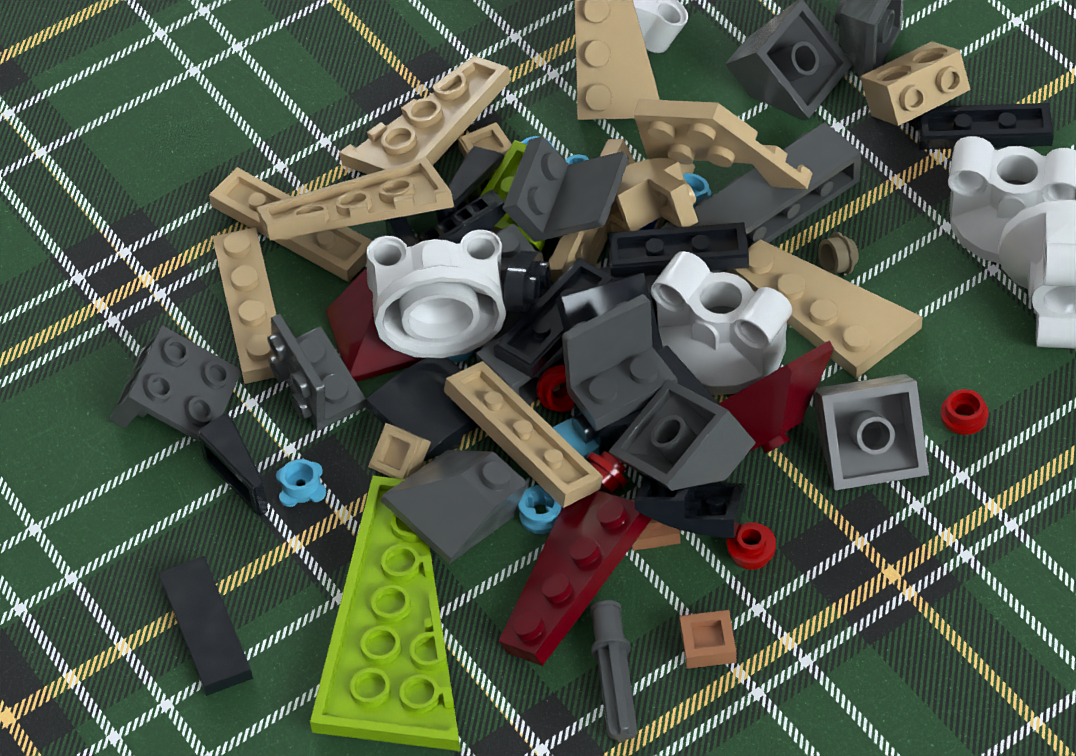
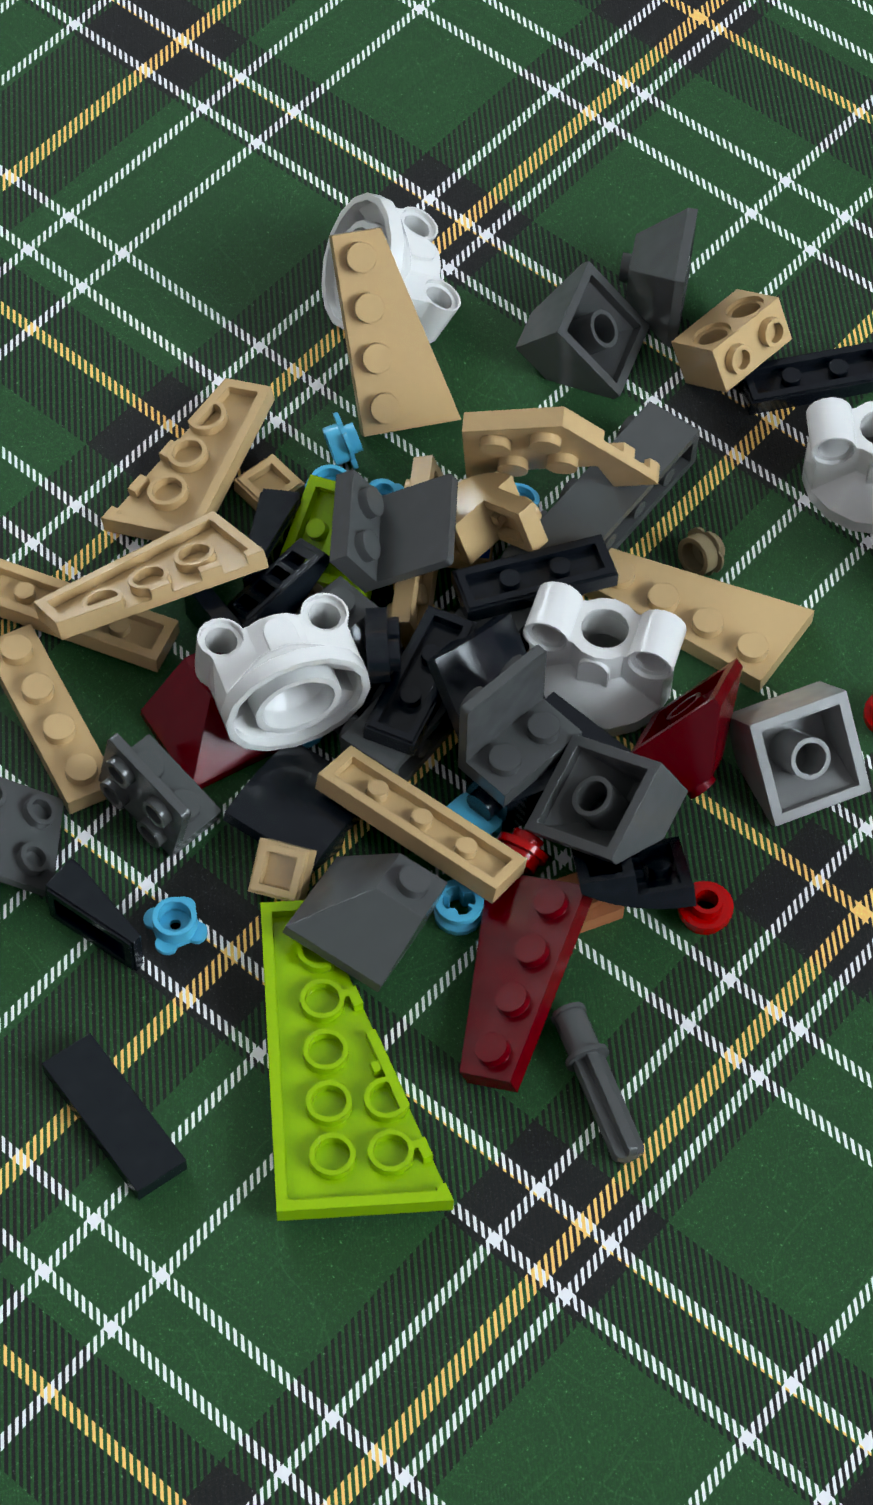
camera: 20 degrees left, 5 degrees up
(551, 399) = (439, 762): red plate -> none
(556, 120) = (342, 442): none -> medium azure plate
(707, 639) = (691, 1026): nougat plate -> none

